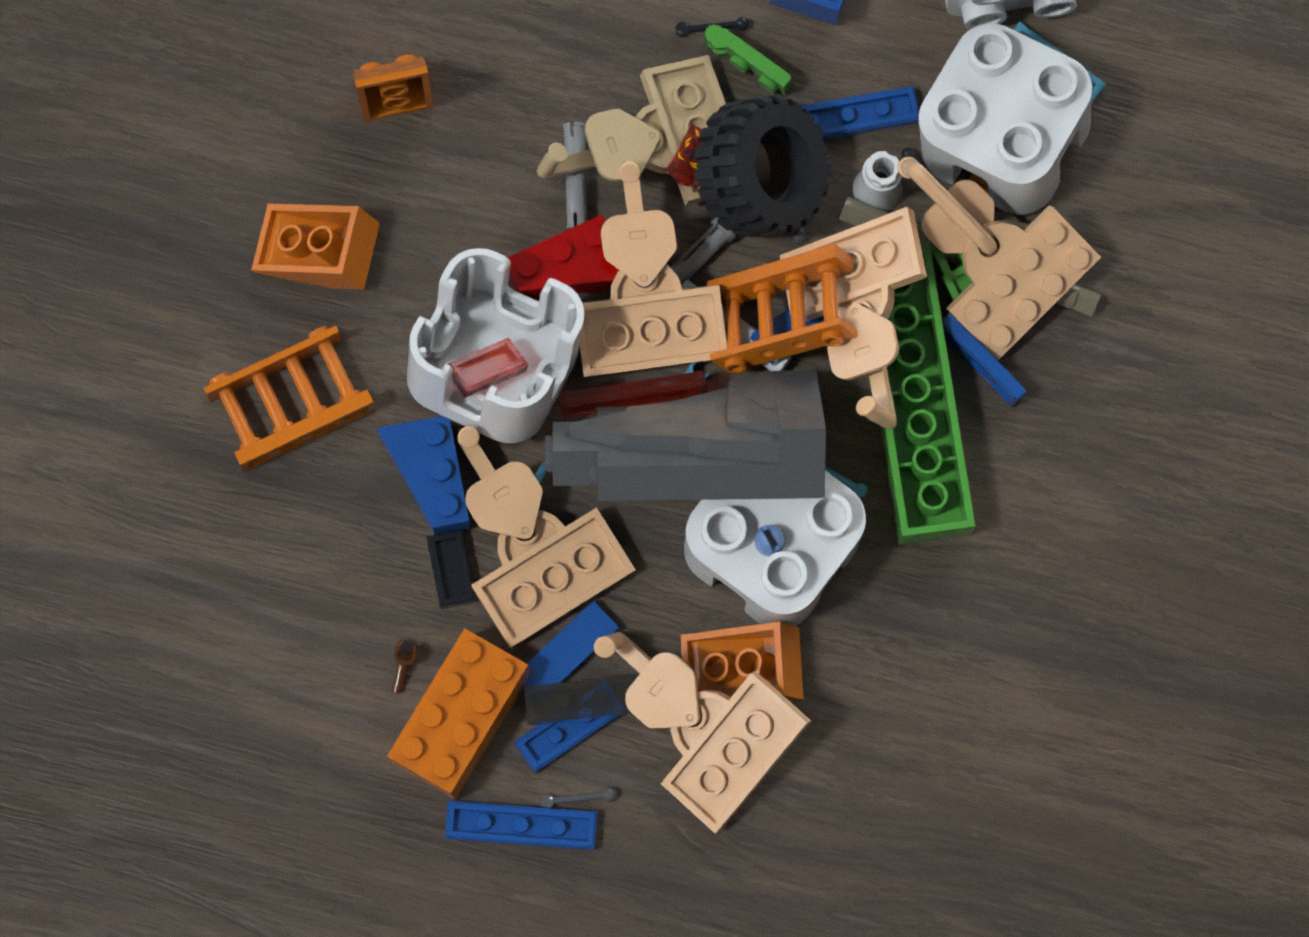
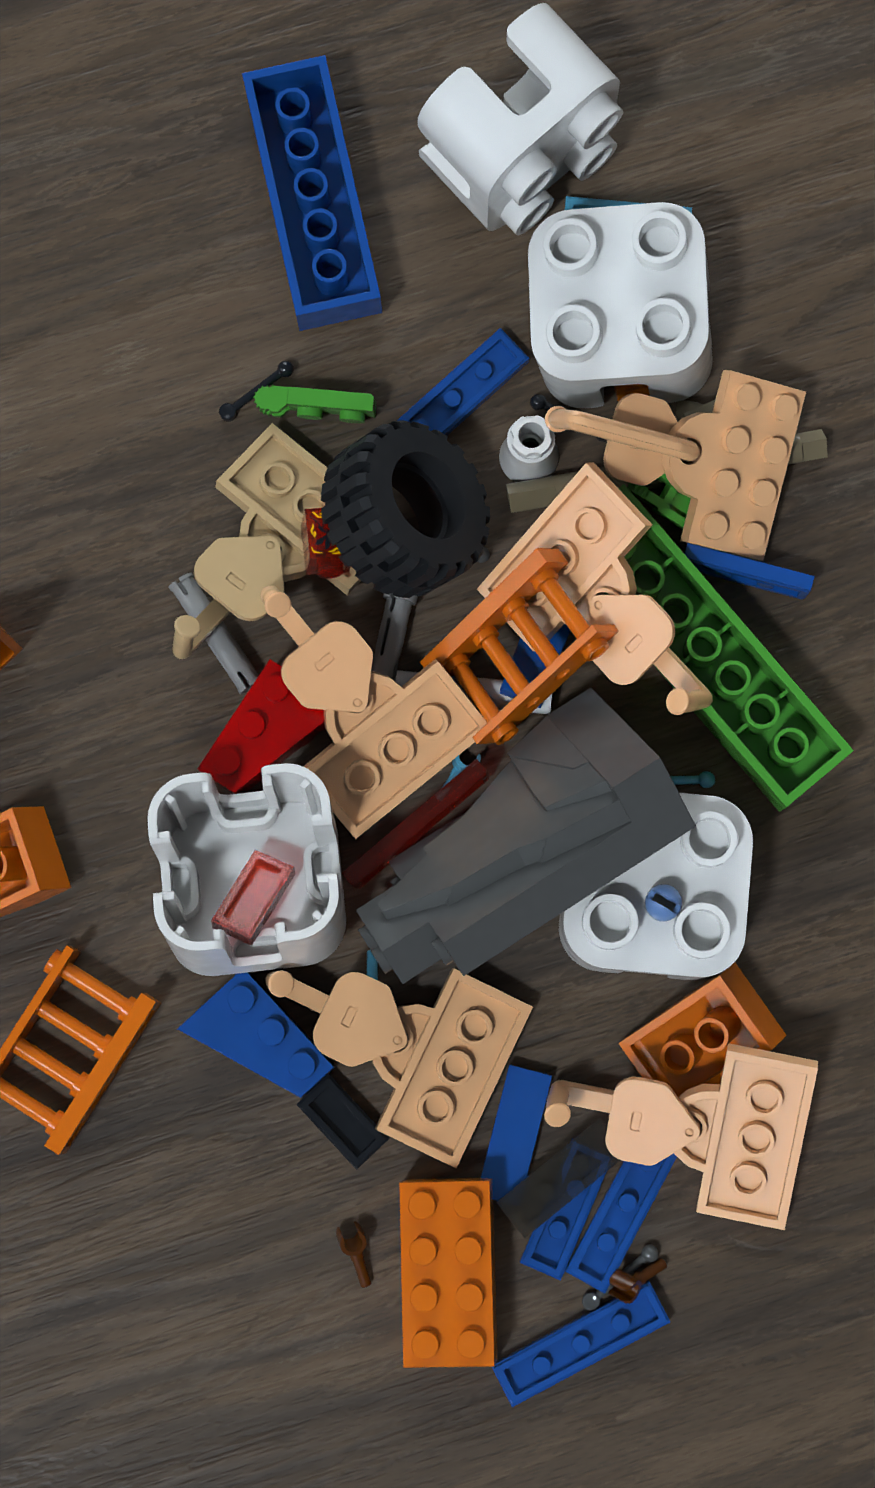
camera: 25 degrees left, 5 degrees up
(581, 804) = (628, 1287): none -> reddish brown hand
(603, 755) = (617, 1221): none -> blue tile

